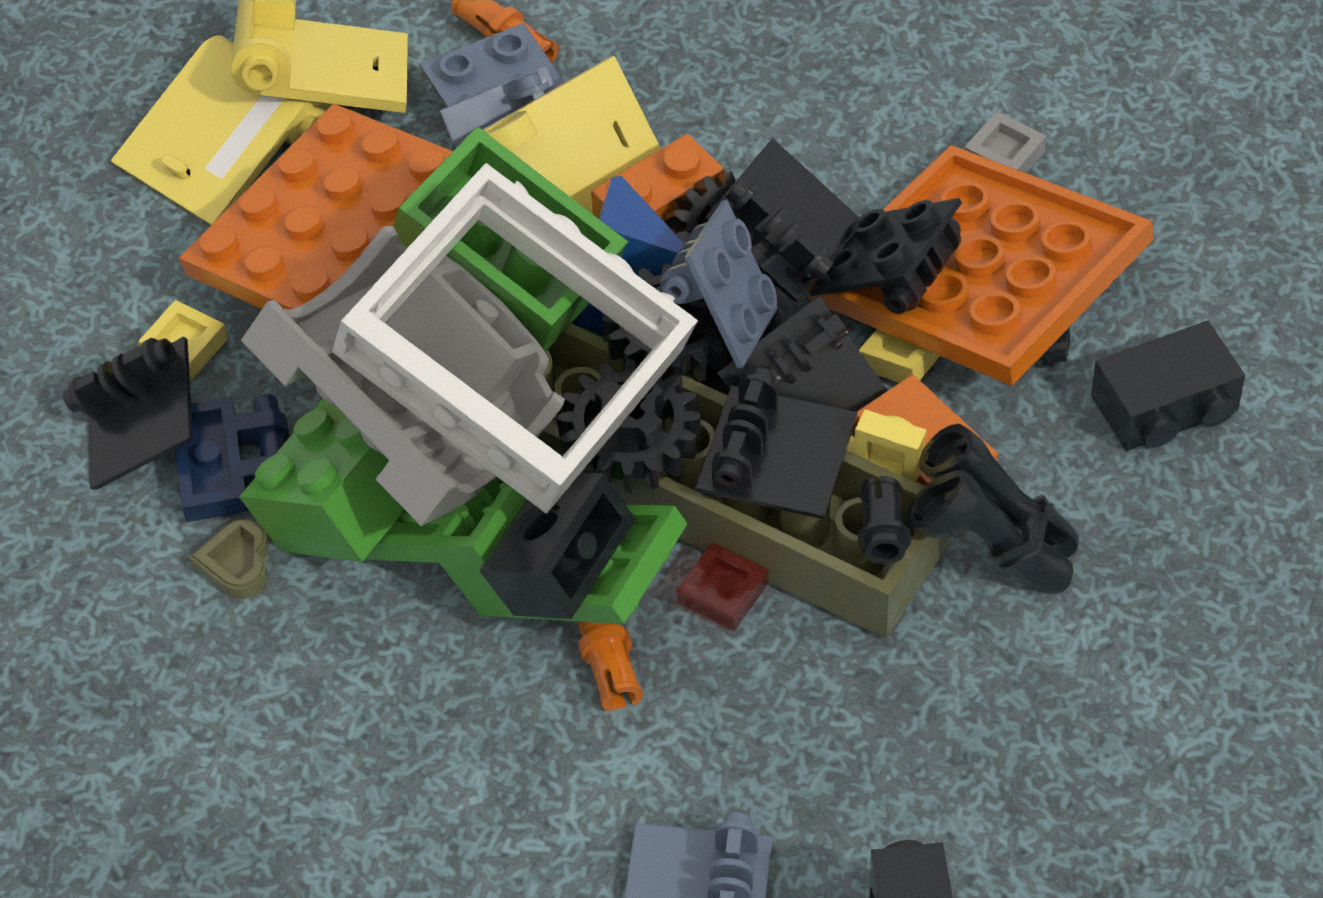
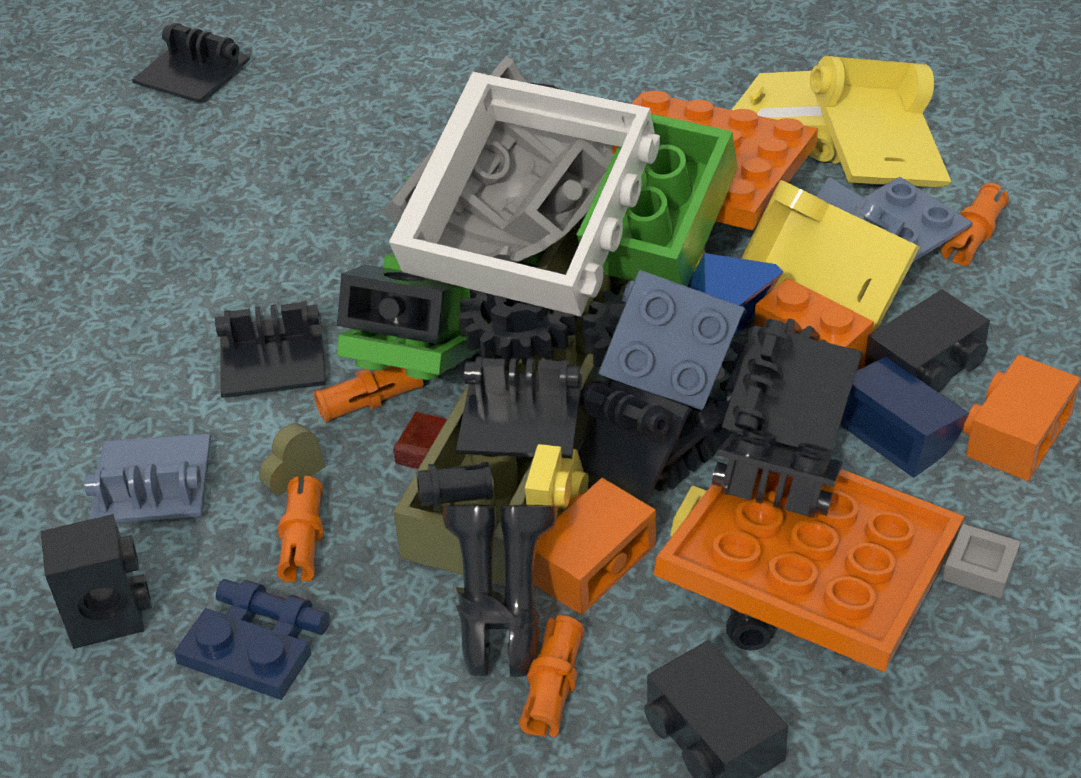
camera: 80 degrees right, 10 degrees down
(501, 748) = (270, 352): none -> black hinge
(701, 100) = (932, 340): none -> black brick
(720, 727) = (293, 455): none -> olive tile
(816, 139) = (901, 416): none -> dark blue brick
(825, 731) = (300, 529): none -> orange pin
(826, 66) = (1021, 416): none -> orange brick
(995, 799) = (248, 653): none -> dark blue plate
(1092, 517) = (552, 676): none -> orange pin

